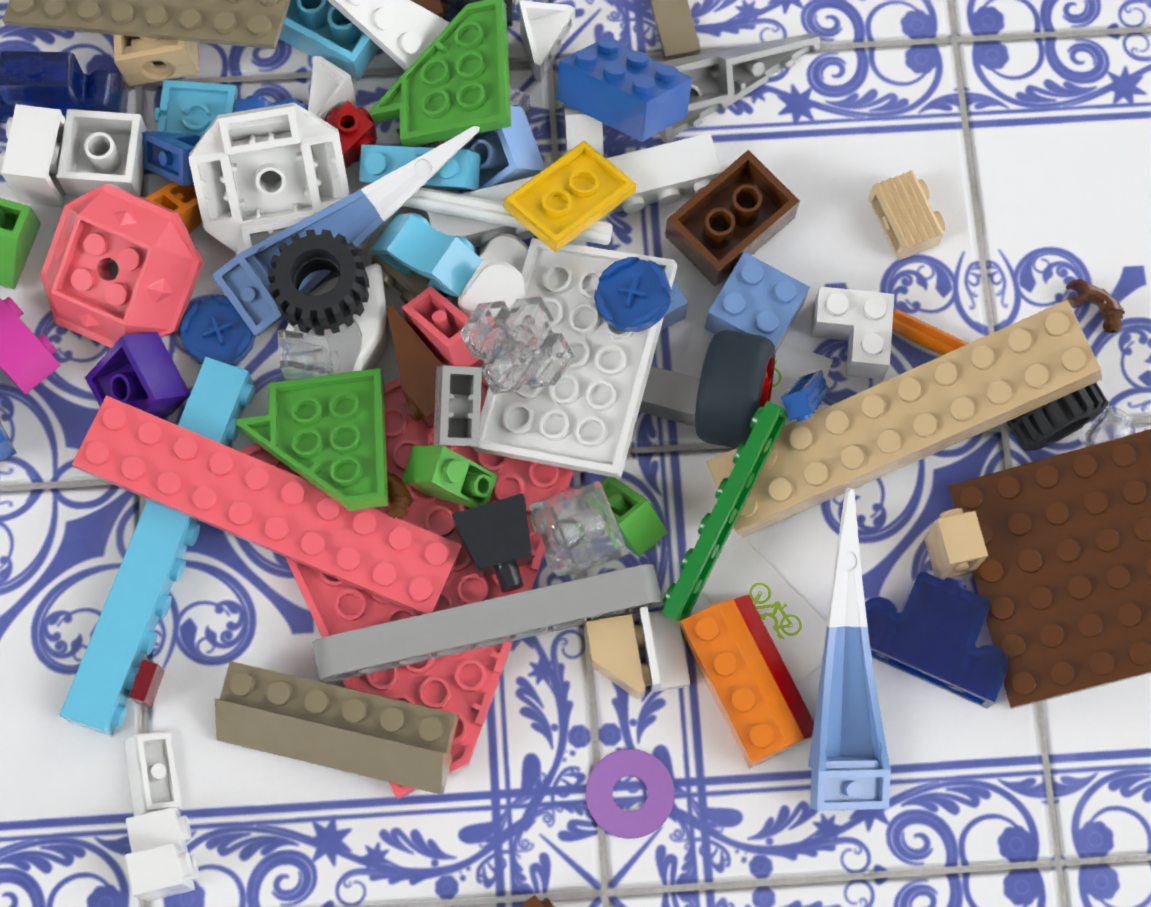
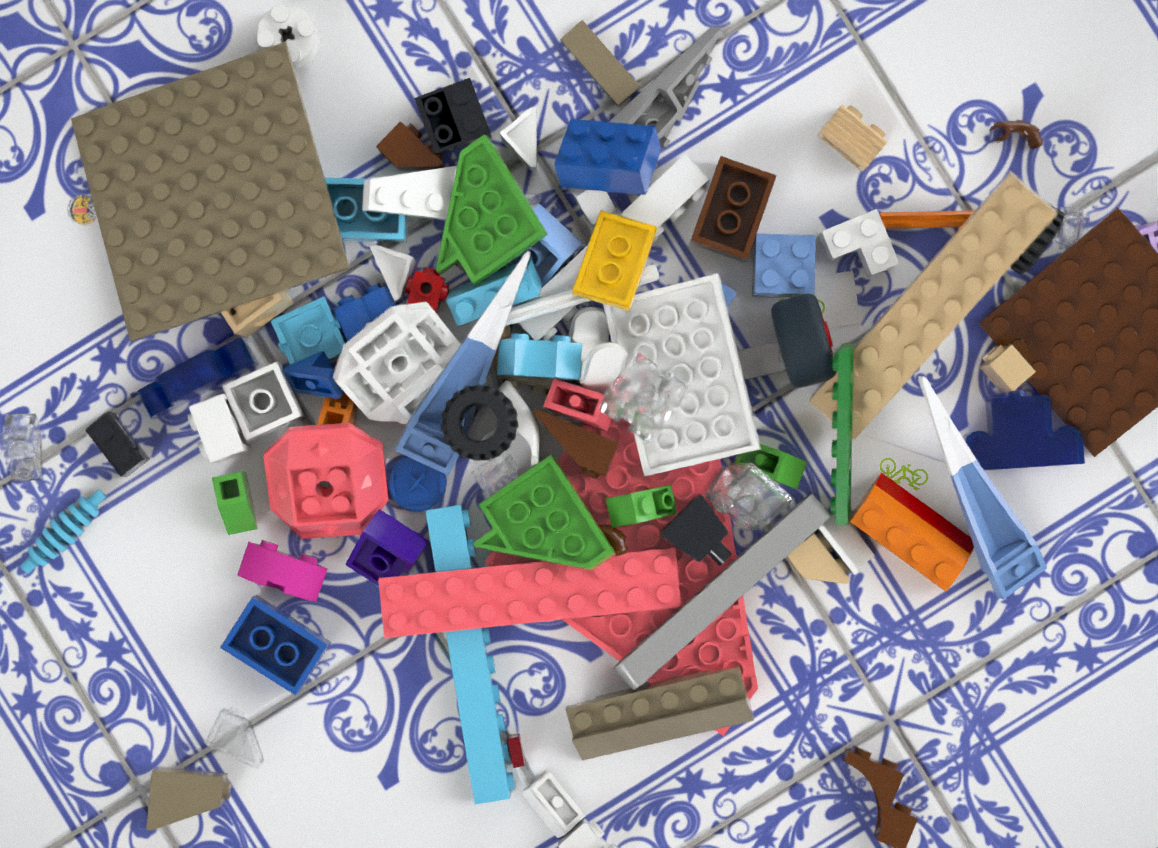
camera: 30 degrees left, 15 degrees up
(457, 405) = (626, 462): light grey brick -> none
(633, 294) = (701, 314): blue tile -> none
(637, 822) = (887, 663): medium lavender gear -> none
(805, 396) = (855, 320): blue piece -> none

